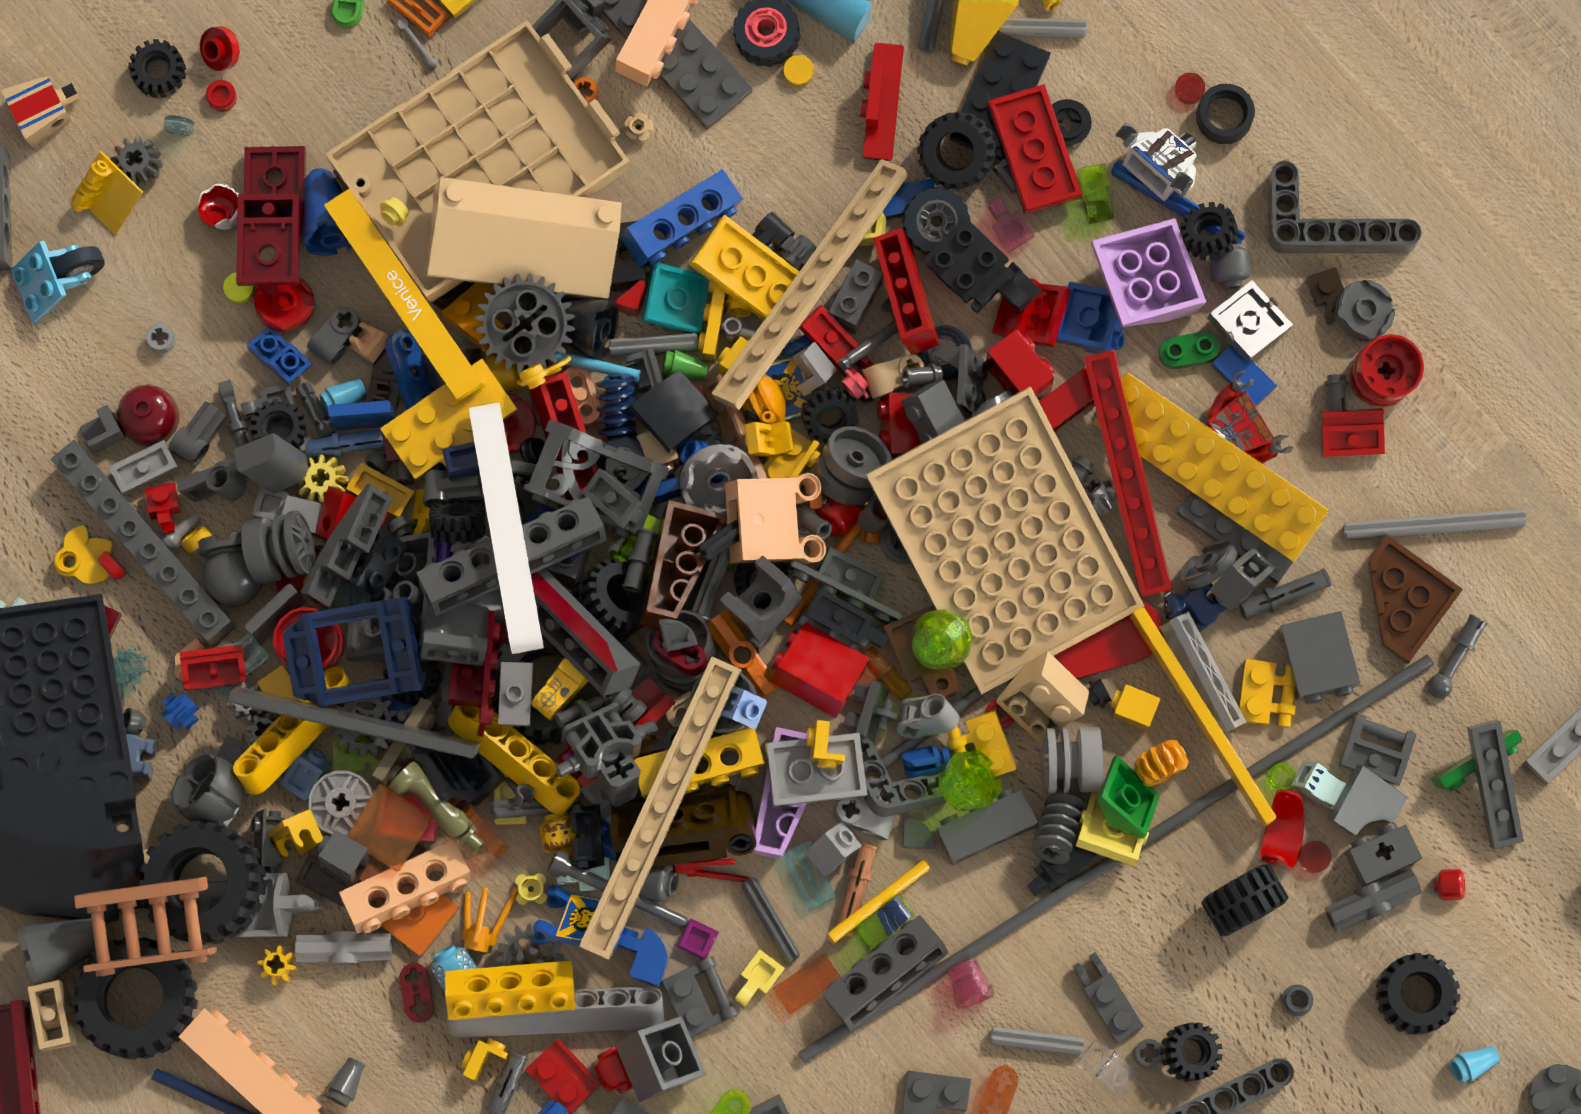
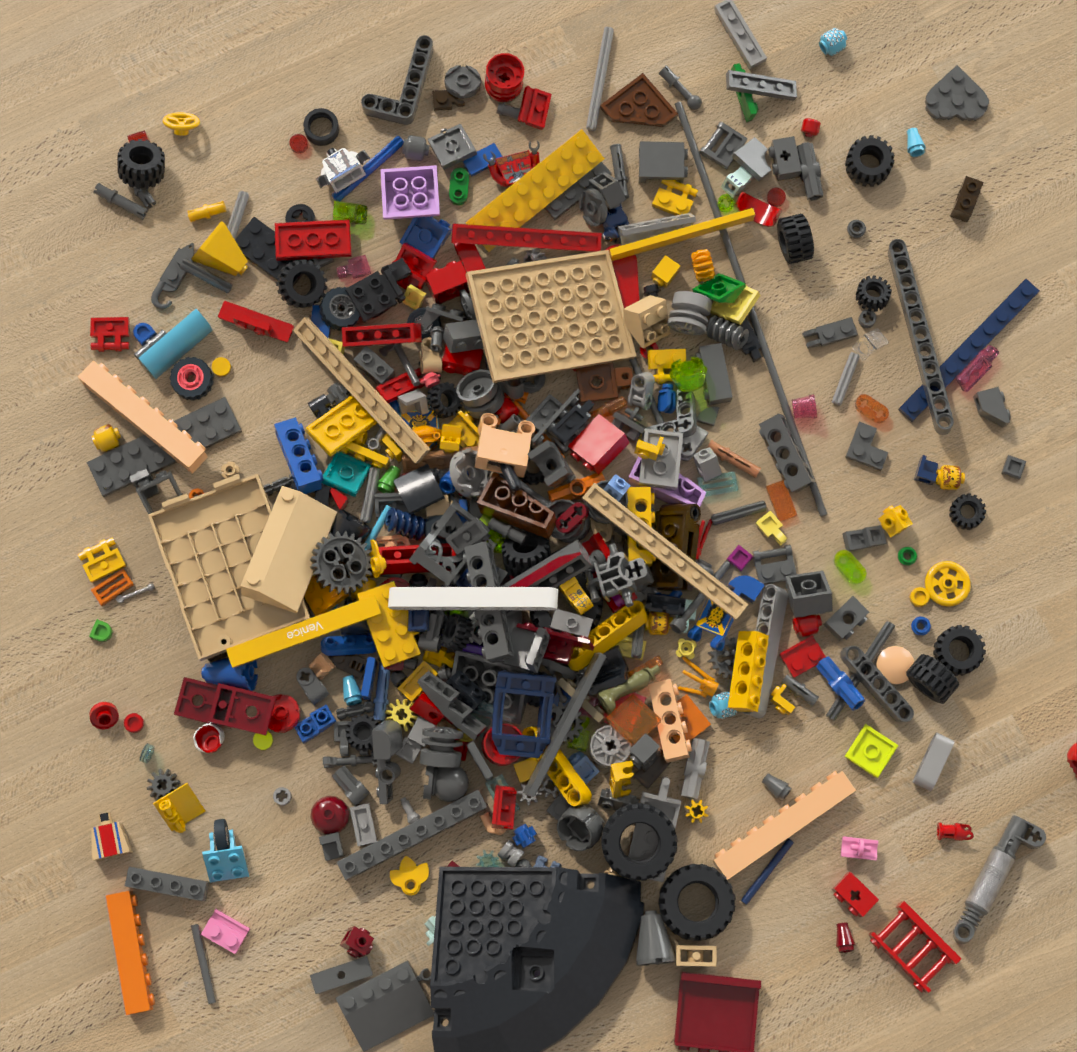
camera: 80 degrees left, 0 degrees up
(112, 565) = (421, 858): red tile -> none
(145, 56) = (113, 767): black tyre -> none
(149, 697) = (510, 853): none -> light grey wheel
(157, 896) = (642, 886): nougat fence -> none
(162, 504) = (390, 817): red plate -> none
(190, 542) = (417, 801): yellow tile -> none
(394, 212) = (250, 623): light yellow plate -> none
(424, 991) = (732, 736): dark red beam -> none
(521, 792) = (631, 636): dark grey hand -> none
(631, 201) = (276, 486): none -> dark grey axle
(676, 634) = (563, 515): dark grey tile -> none
(878, 901) = (744, 447): yellow bar -> none
(884, 922) = (756, 447): leg -> none
(941, 640) = (601, 367): clear neon green cone -> none
(985, 327) = (414, 297): none -> light yellow plate
(1213, 244) = (384, 149): black tyre -> none

